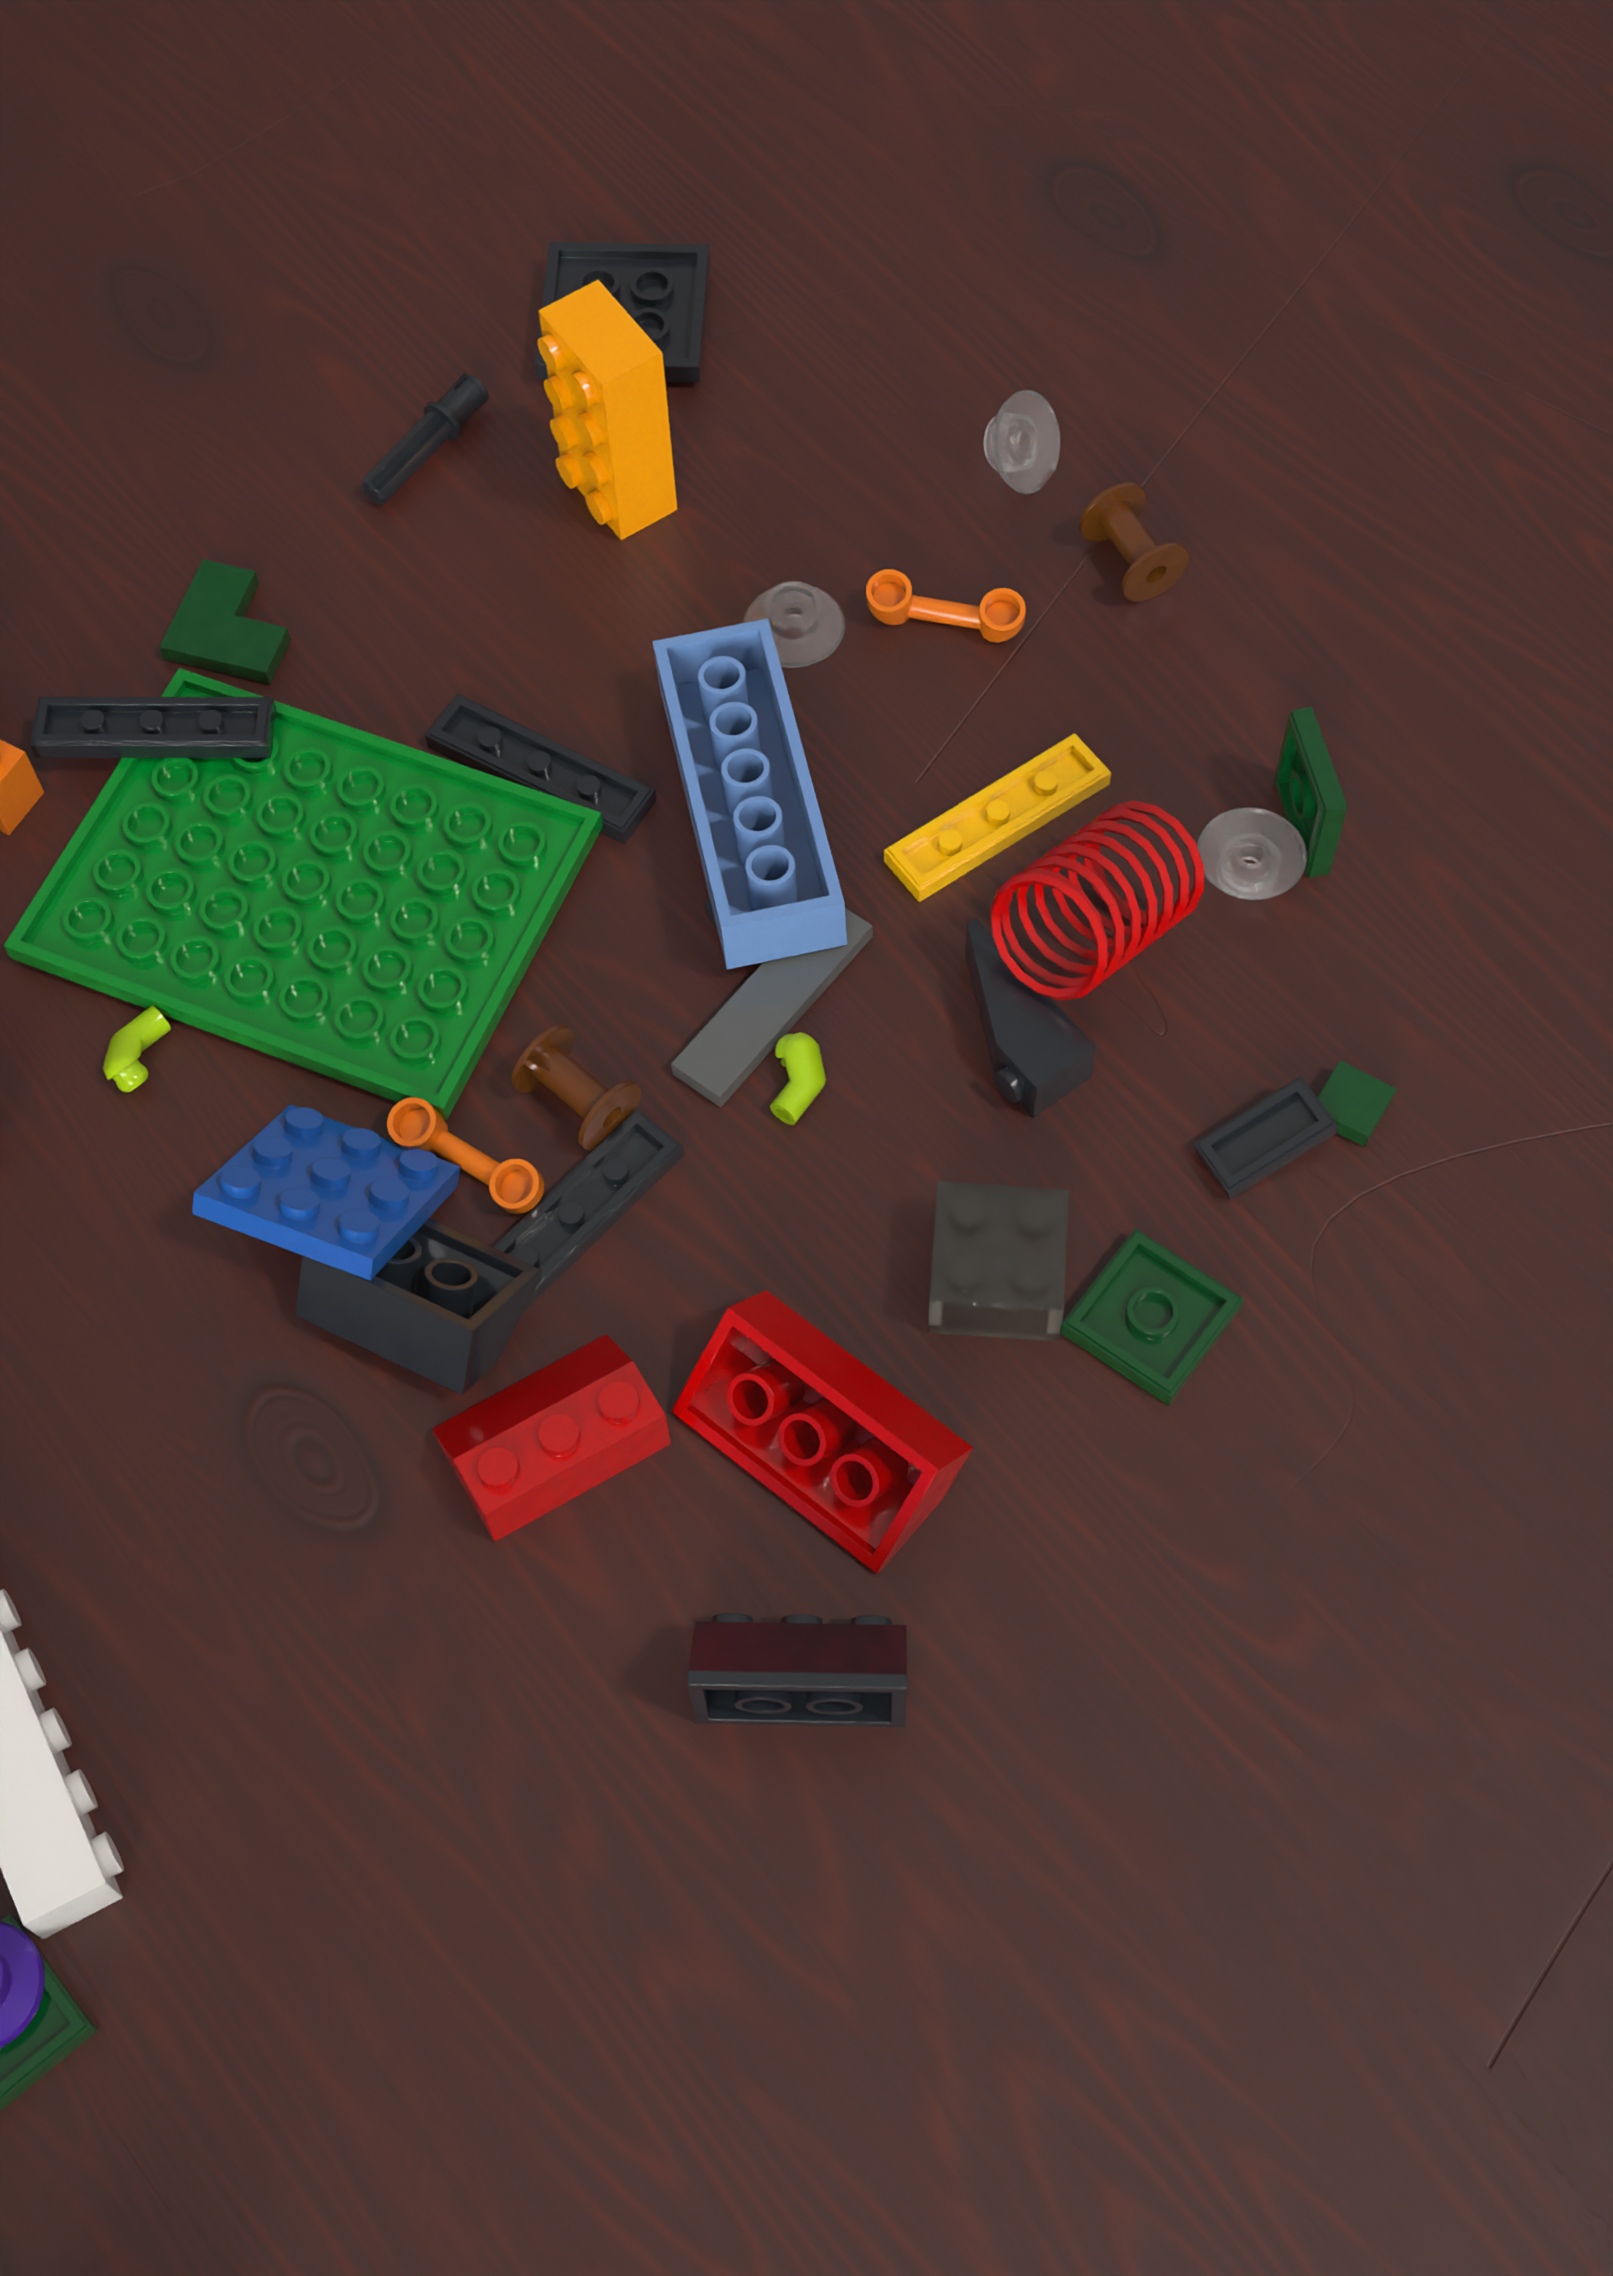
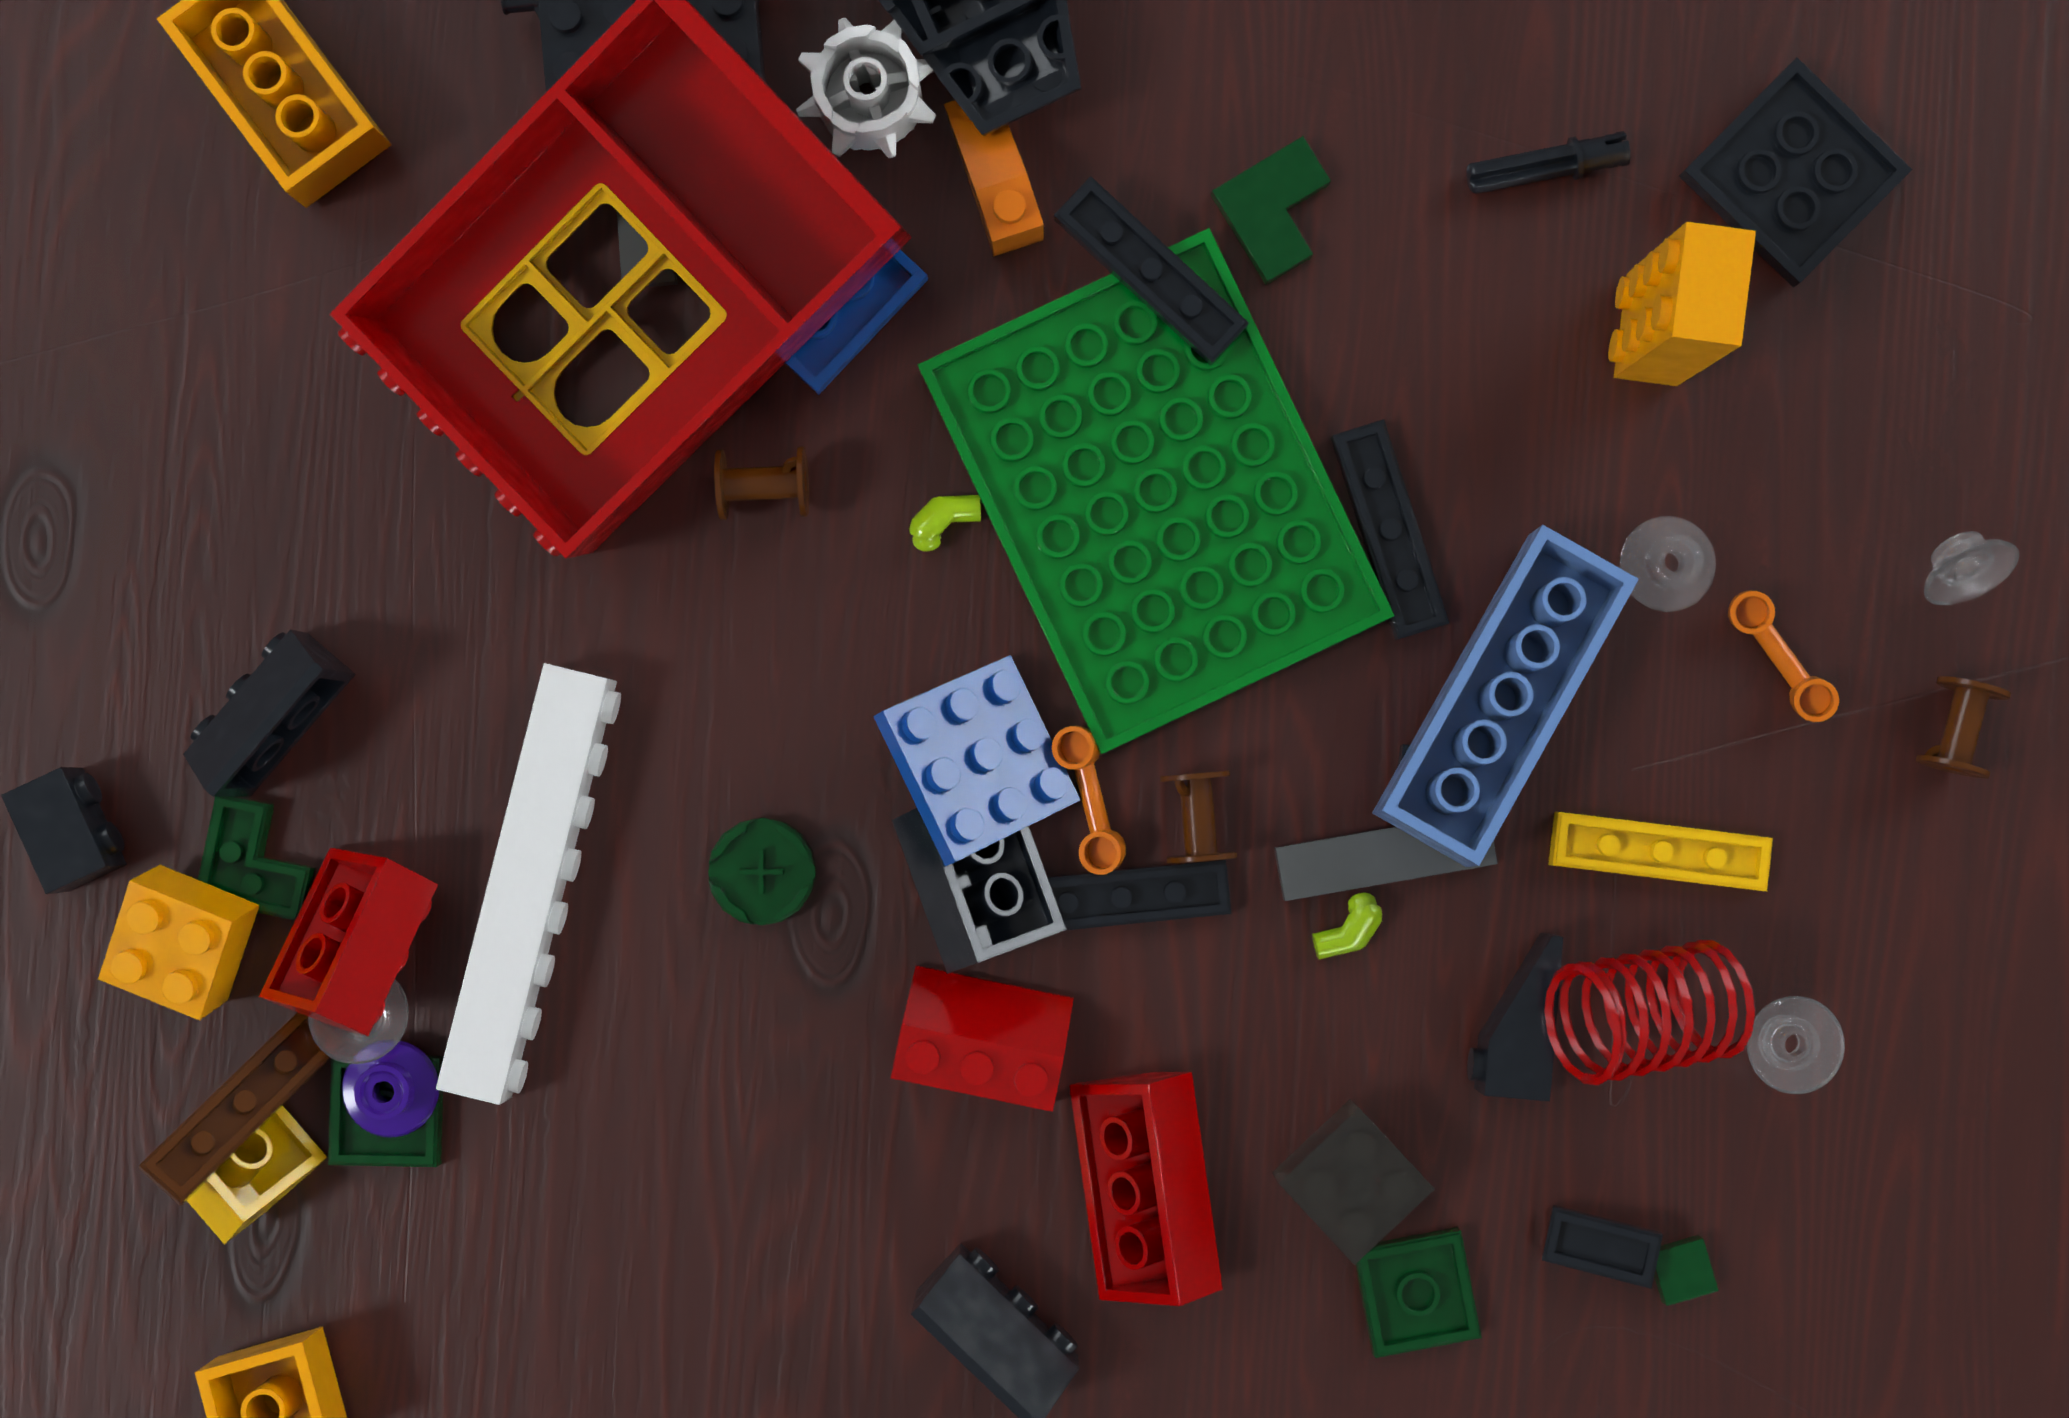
camera: 40 degrees right, 25 degrees up
(209, 1471) = (761, 871): none -> dark green tile
(1310, 790) = (1878, 1045): dark green tile -> none

